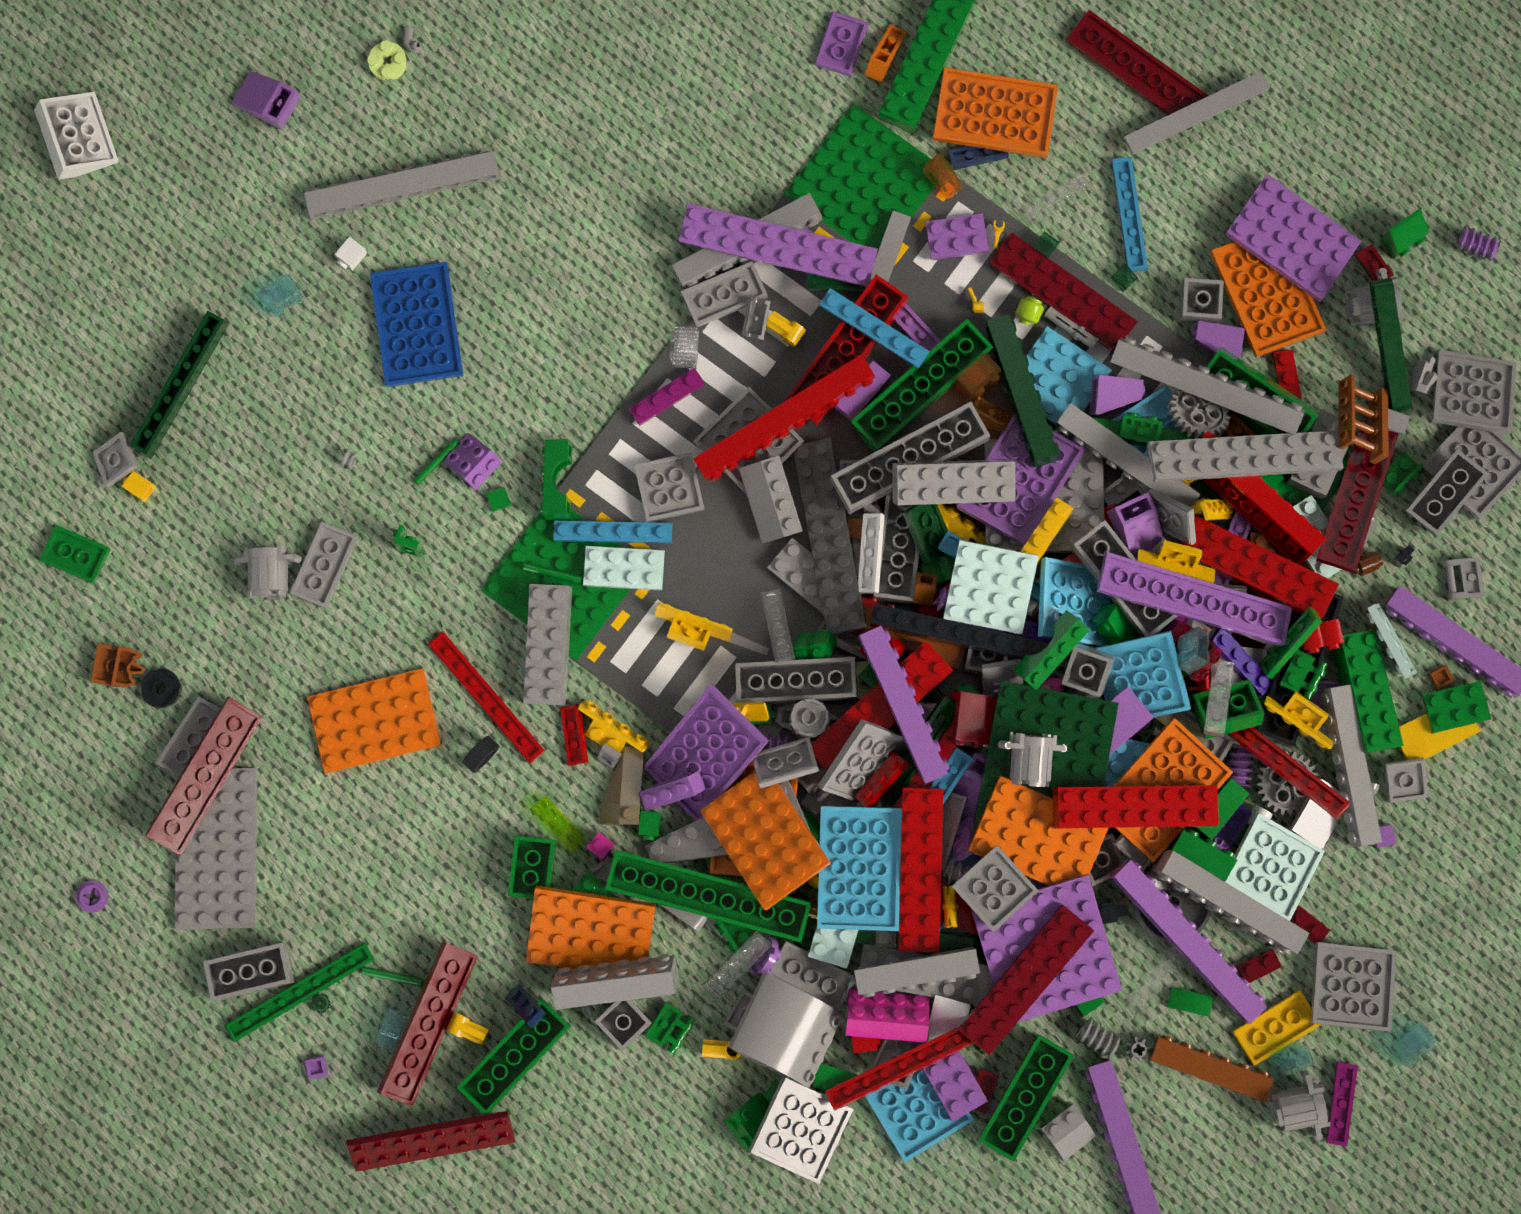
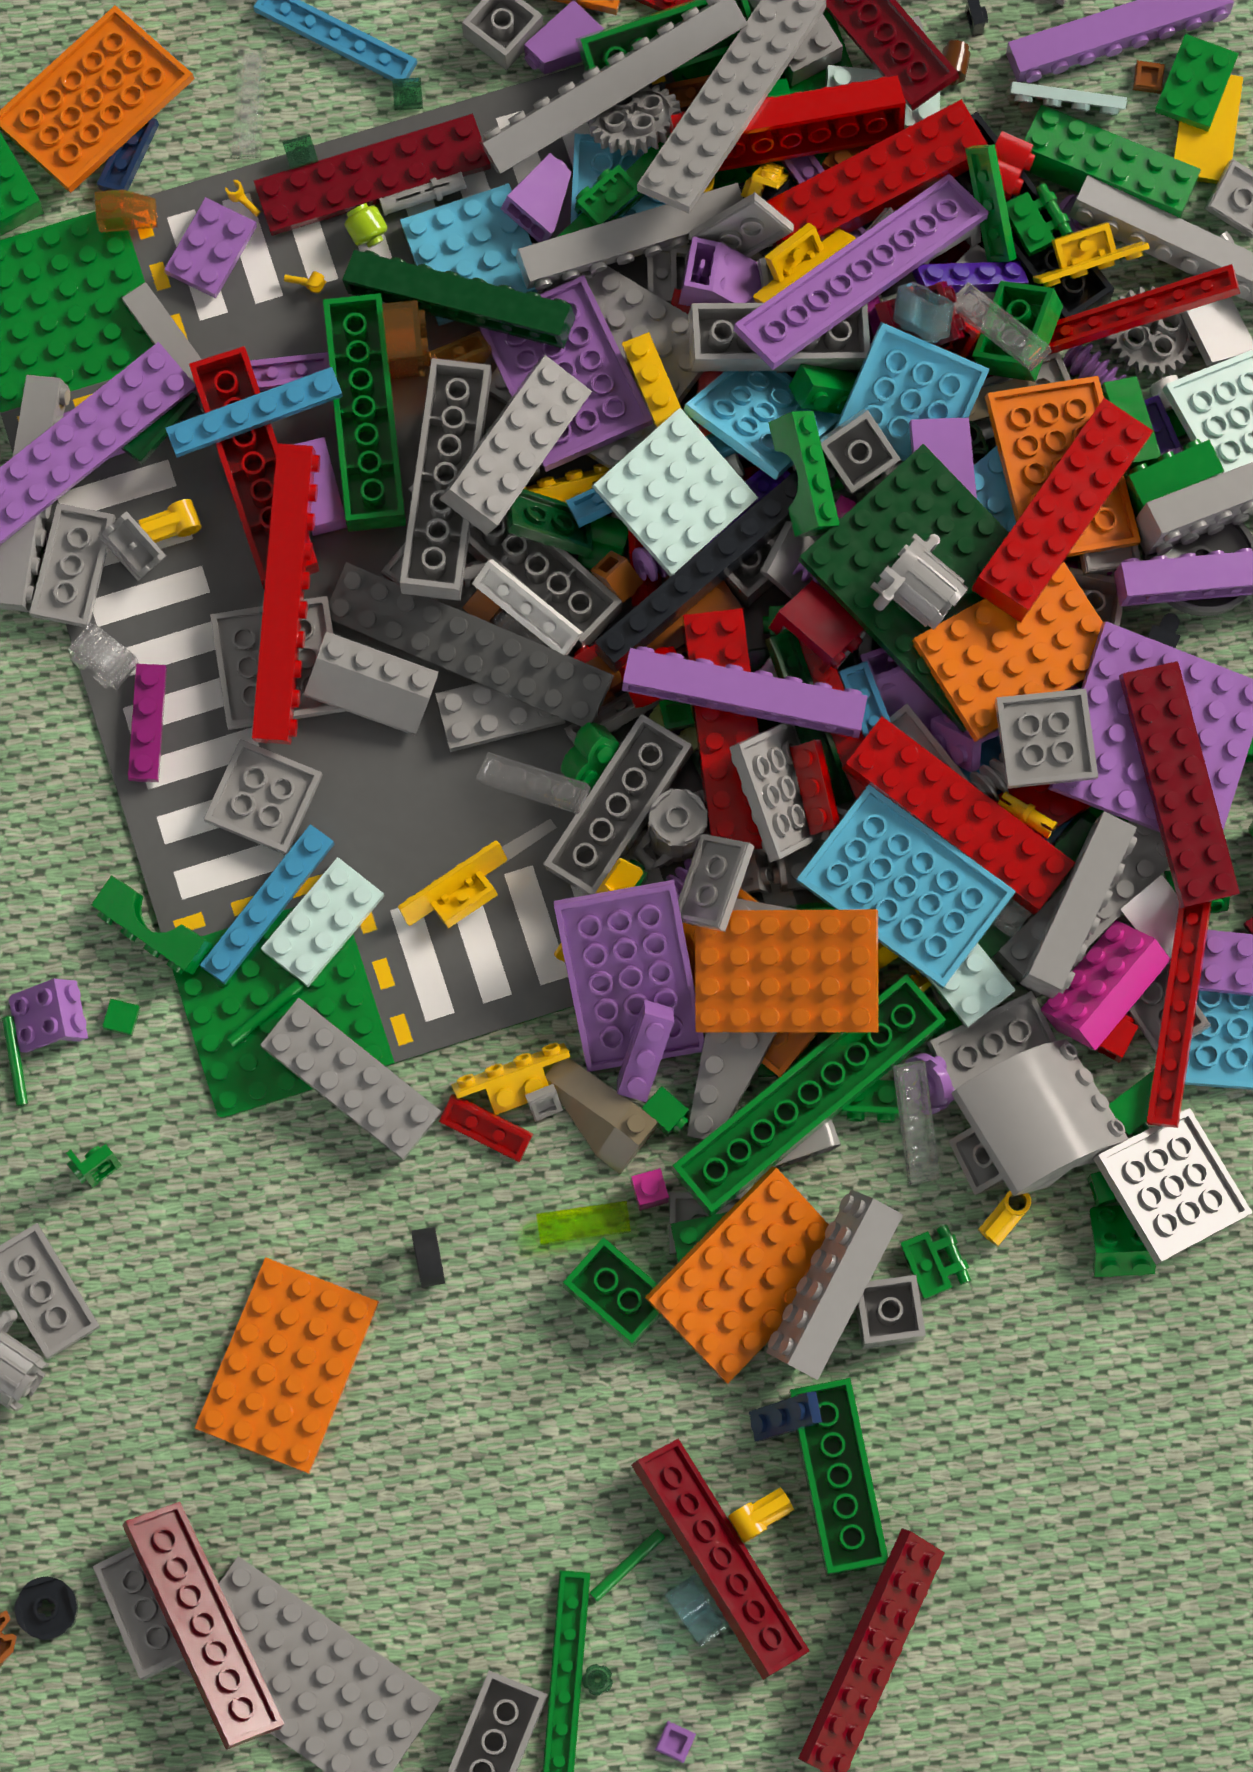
camera: 55 degrees left, 5 degrees down
(486, 697) = (359, 1204): red tile -> none

